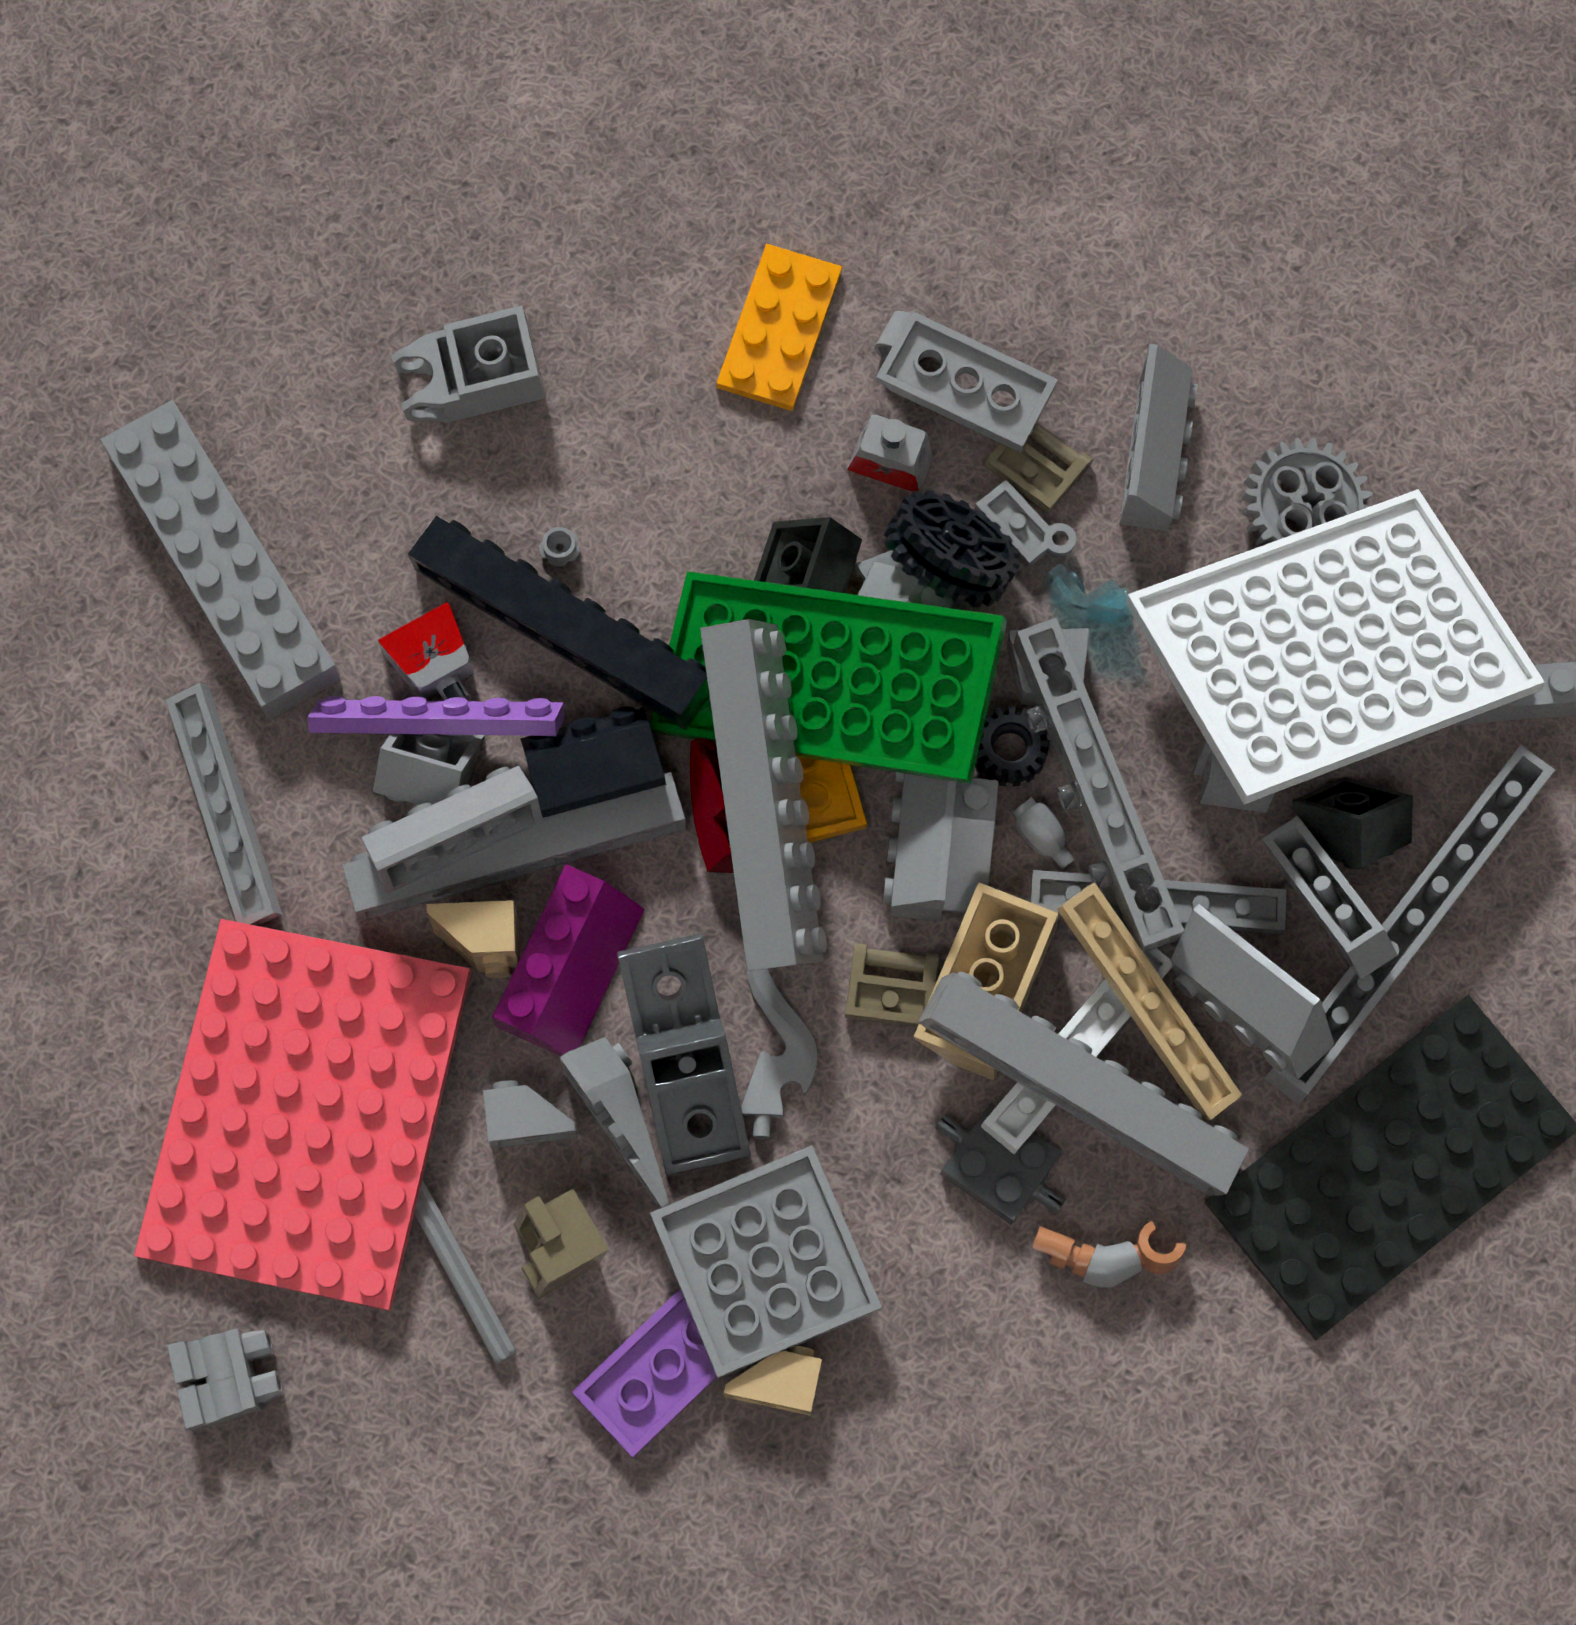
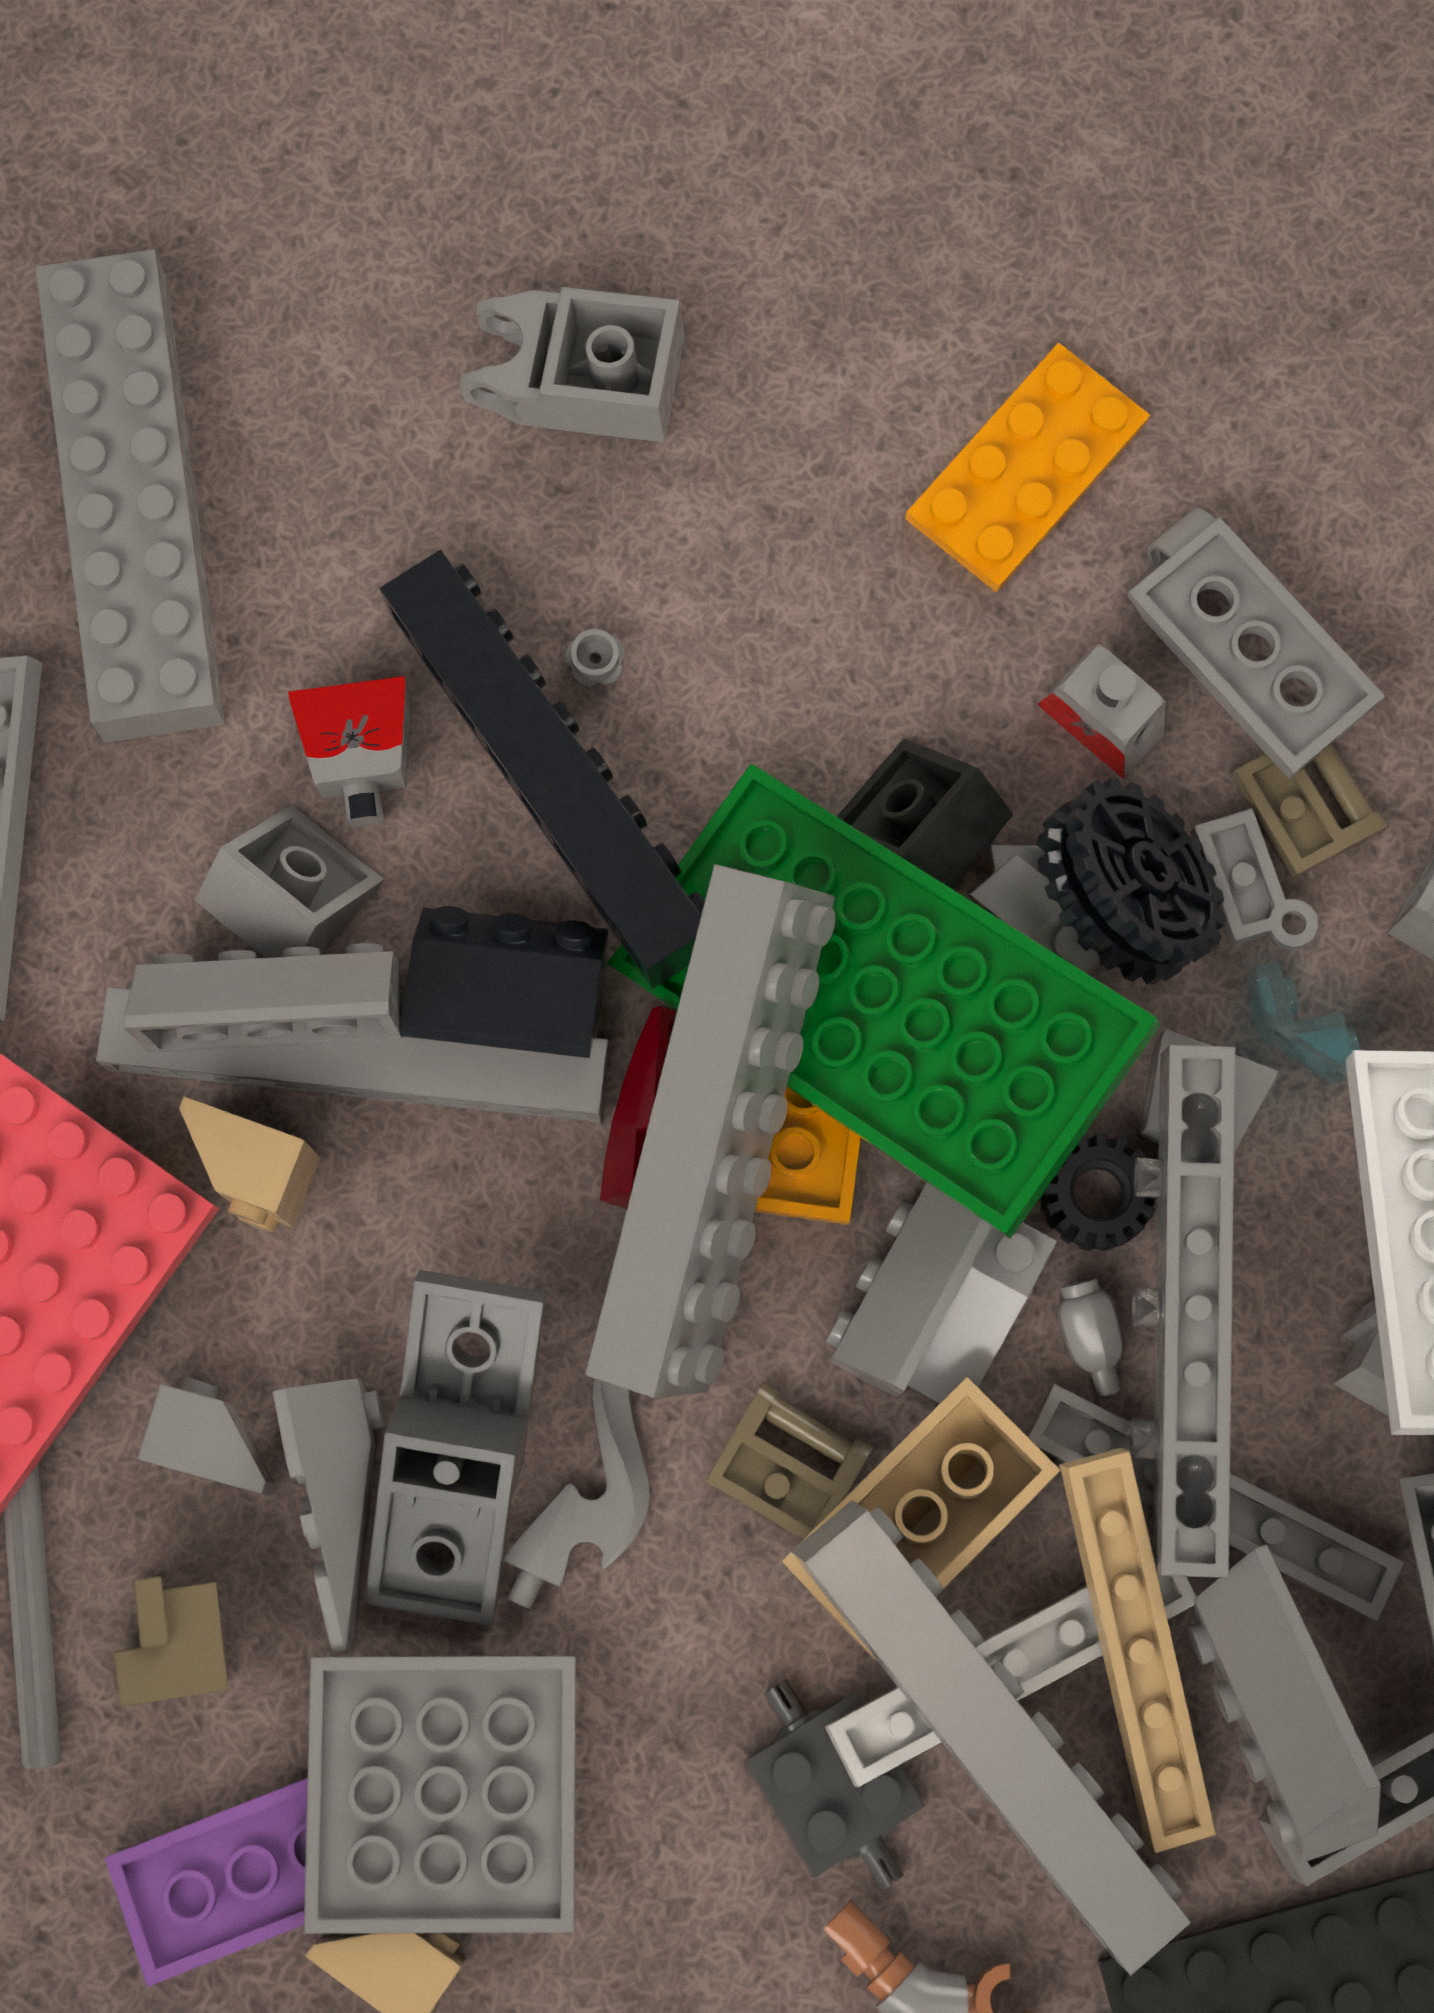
camera: 25 degrees right, 5 degrees up
(447, 717) = (323, 833): medium lavender plate -> none
(568, 962) = (356, 1249): magenta slope -> none

